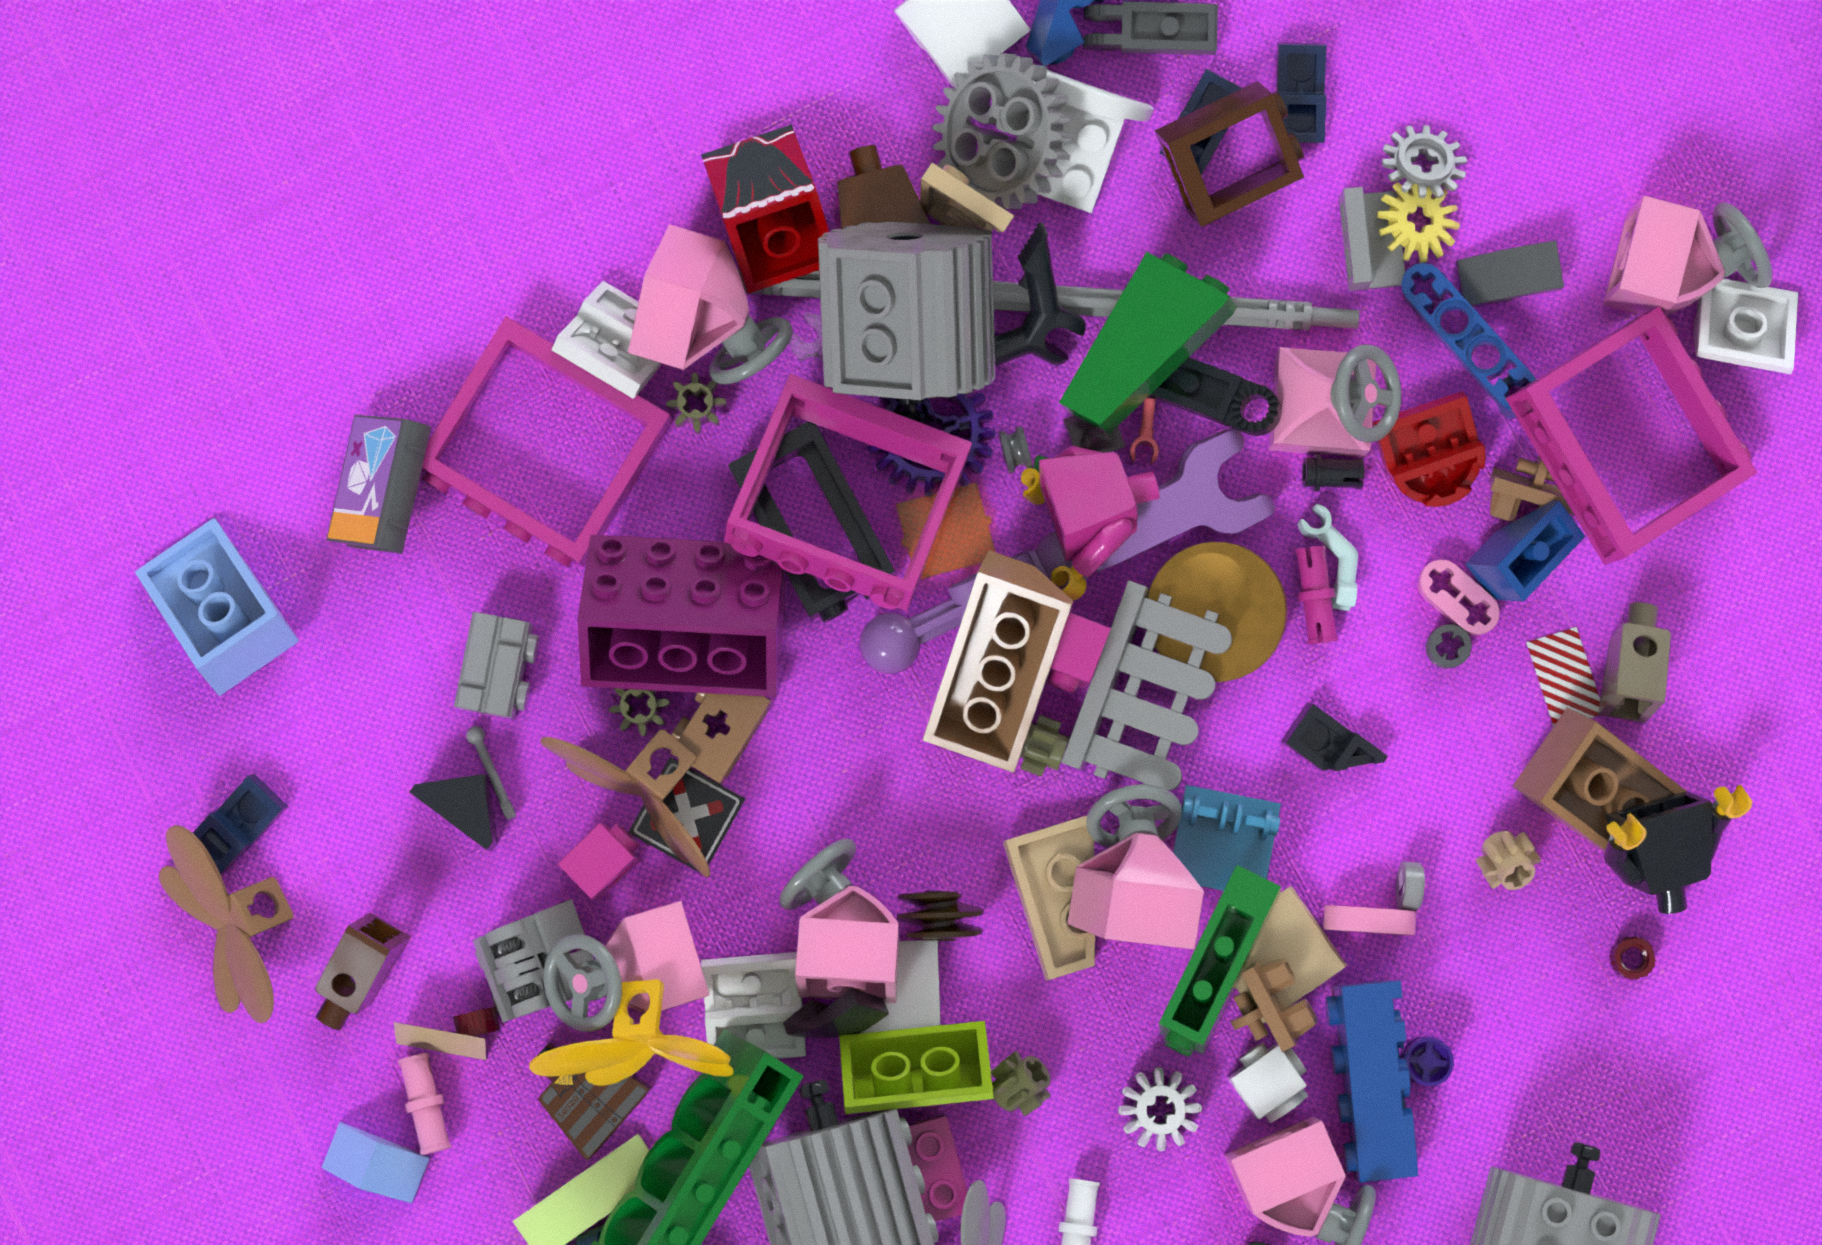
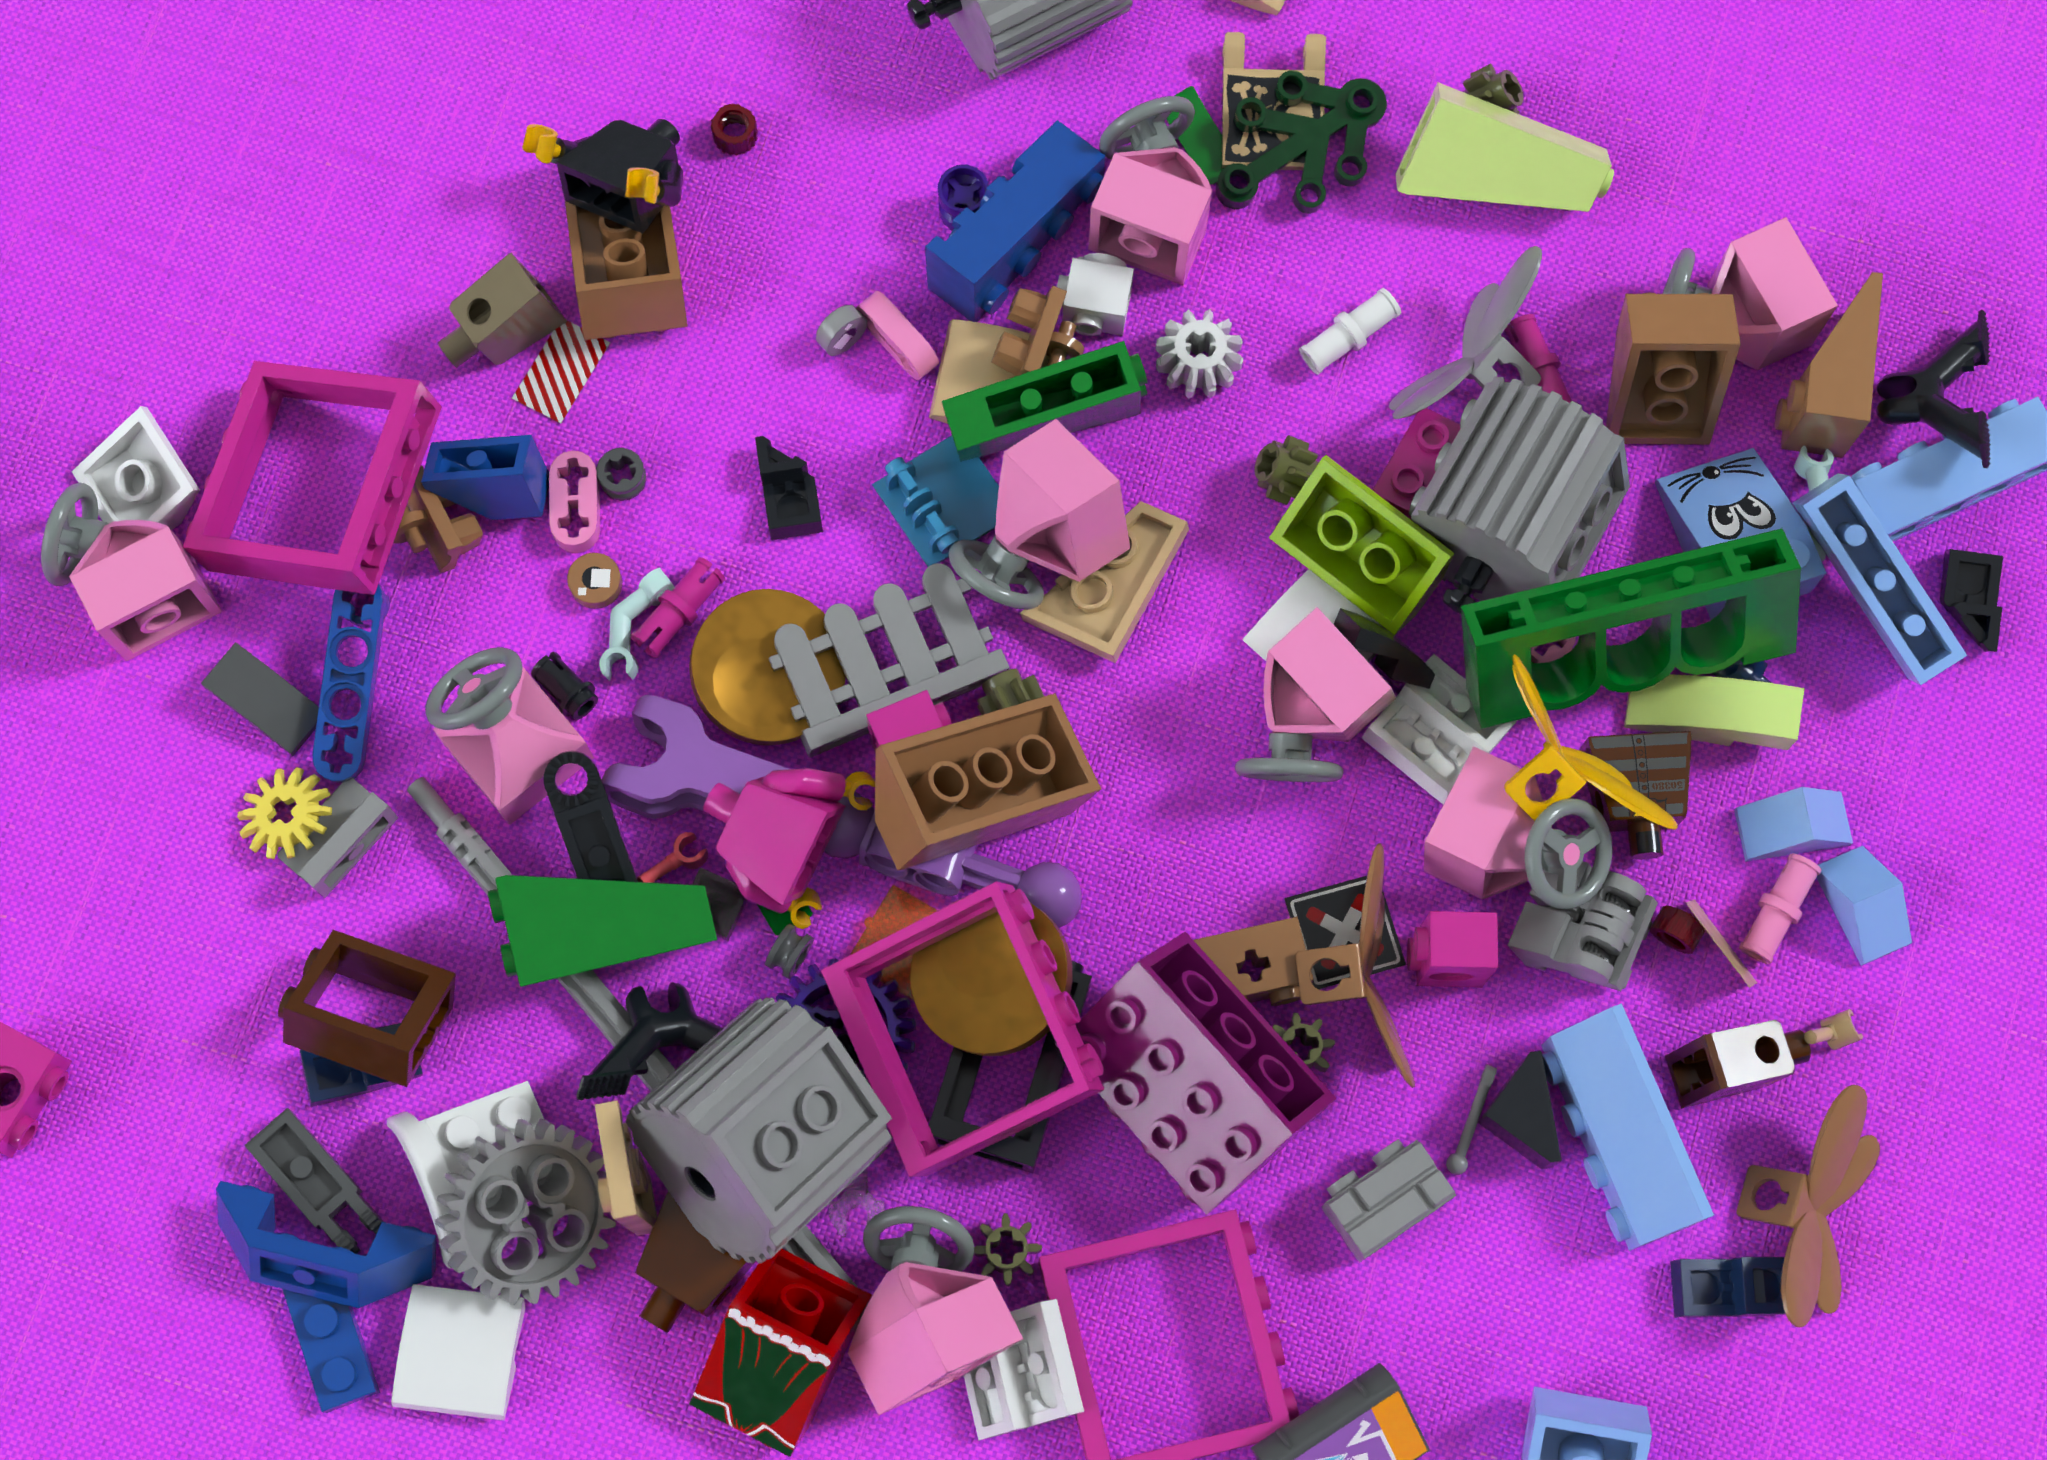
camera: 140 degrees left, 10 degrees down
(316, 1055) = (1836, 1030): none -> tan hand
(390, 852) = (1624, 1129): none -> light blue slope
(466, 1172) = (1793, 823): none -> light blue slope
(872, 526) = (977, 990): none -> pearl gold piece
(940, 915) = (1221, 644): dark brown piece -> none
(1302, 89) = (251, 1015): dark blue slope -> none
(1389, 560) = (594, 580): none -> medium nougat tile
(1434, 150) = (210, 854): light grey gear -> none
(1434, 451) = (468, 617): red slope -> none
(1508, 860) = (748, 275): tan gear -> none

